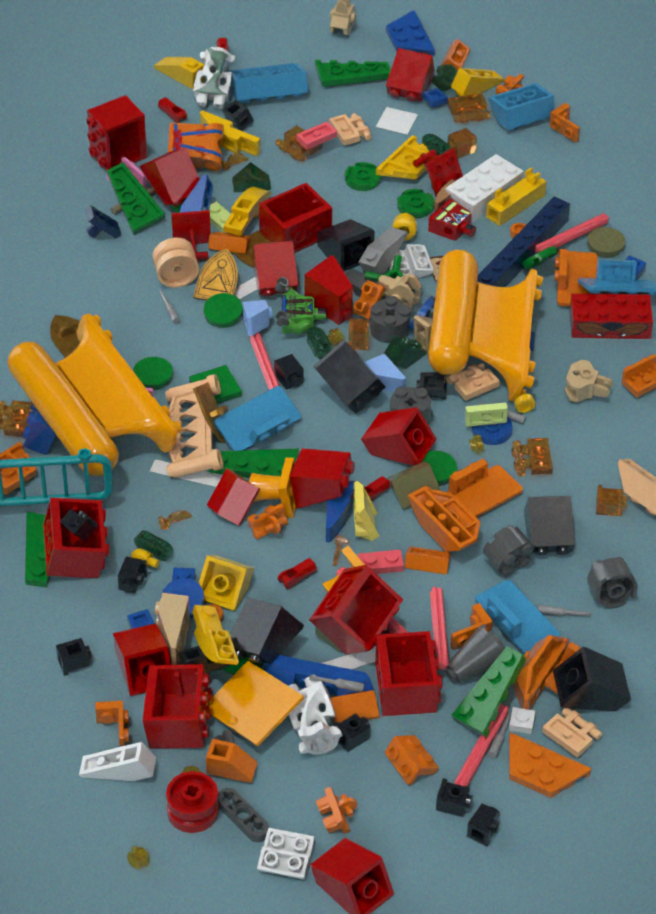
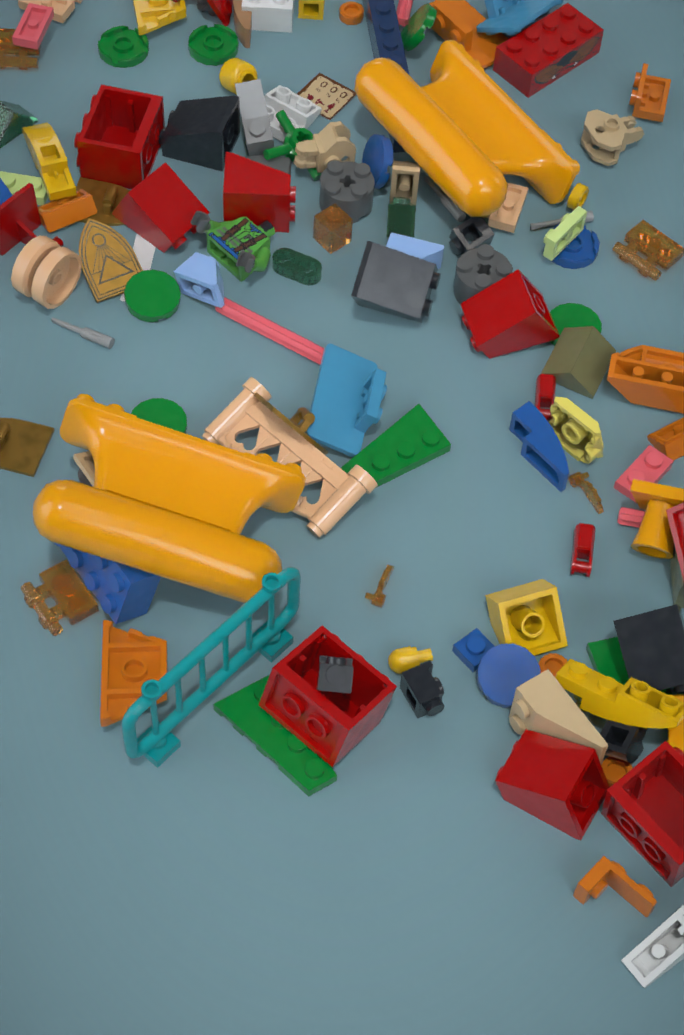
camera: 45 degrees left, 10 degrees up
(73, 655) = (470, 855): black brick -> none
(140, 619) = (497, 740): blue plate -> none
(155, 545) = (403, 634): clear green beam -> none
(200, 477) = (365, 506): white sticker -> none
(228, 384) = (231, 381): green tile -> none
(233, 497) = (425, 511): slope -> none
(269, 521) = (493, 512): orange hips -> none
(277, 487) = (461, 465): light orange plant -> none
(289, 371) = (310, 320): black brick -> none
(320, 476) = (503, 418): red slope -> none
(335, 336) = (309, 246): clear yellow plate -> none
(370, 295) = (303, 178): orange hips -> none
(451, 221) = (279, 41): red torso -> none
(476, 443) = (582, 272): clear yellow plate -> none
(482, 487) = (647, 316): orange bracket -> none

